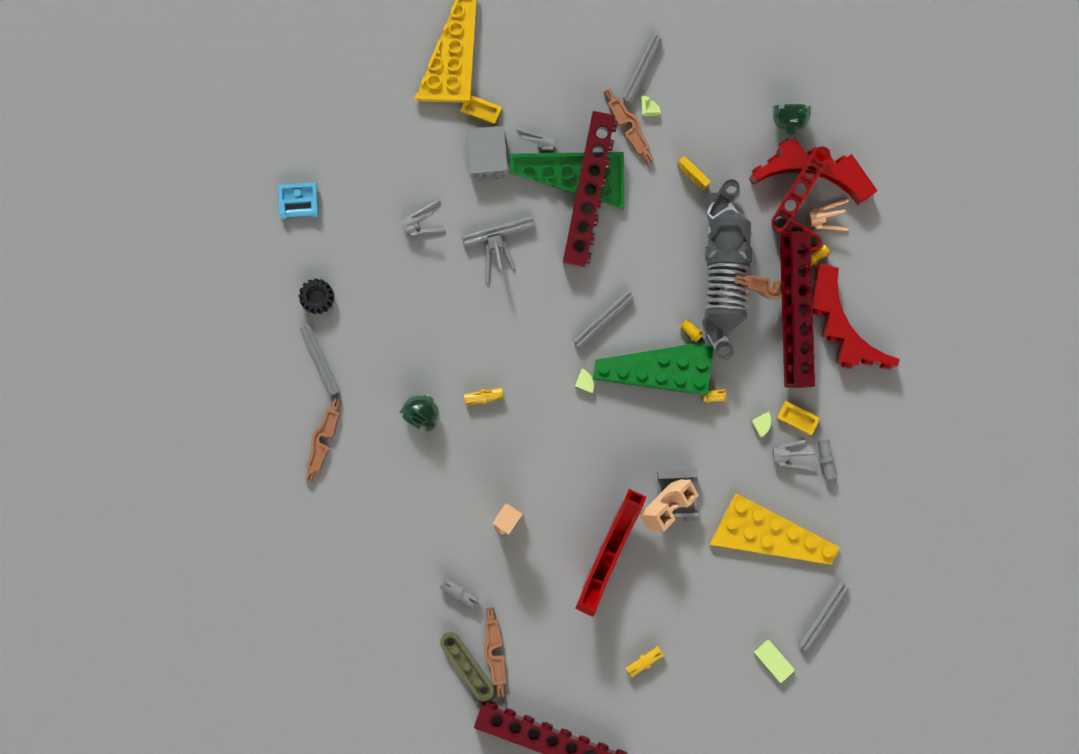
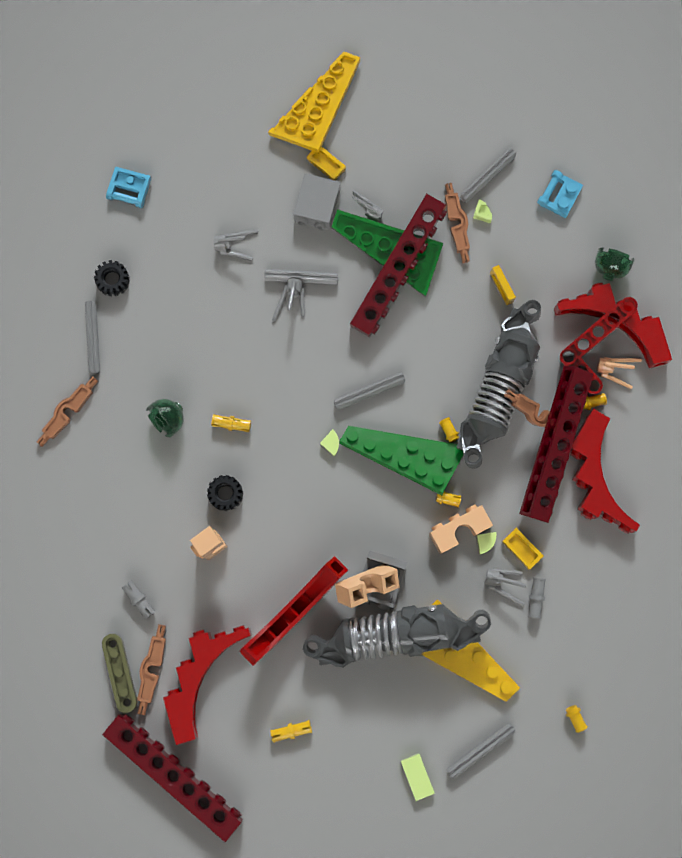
camera: 20 degrees right, 5 degrees down
(494, 456) = (216, 485): none -> black tyre
(535, 673) = (182, 705): none -> red arch
(720, 534) = (406, 631): none -> piece
(723, 63) = (565, 197): none -> medium azure plate
(744, 406) = (444, 535): none -> light nougat arch
(899, 556) = (576, 718): none -> yellow pin

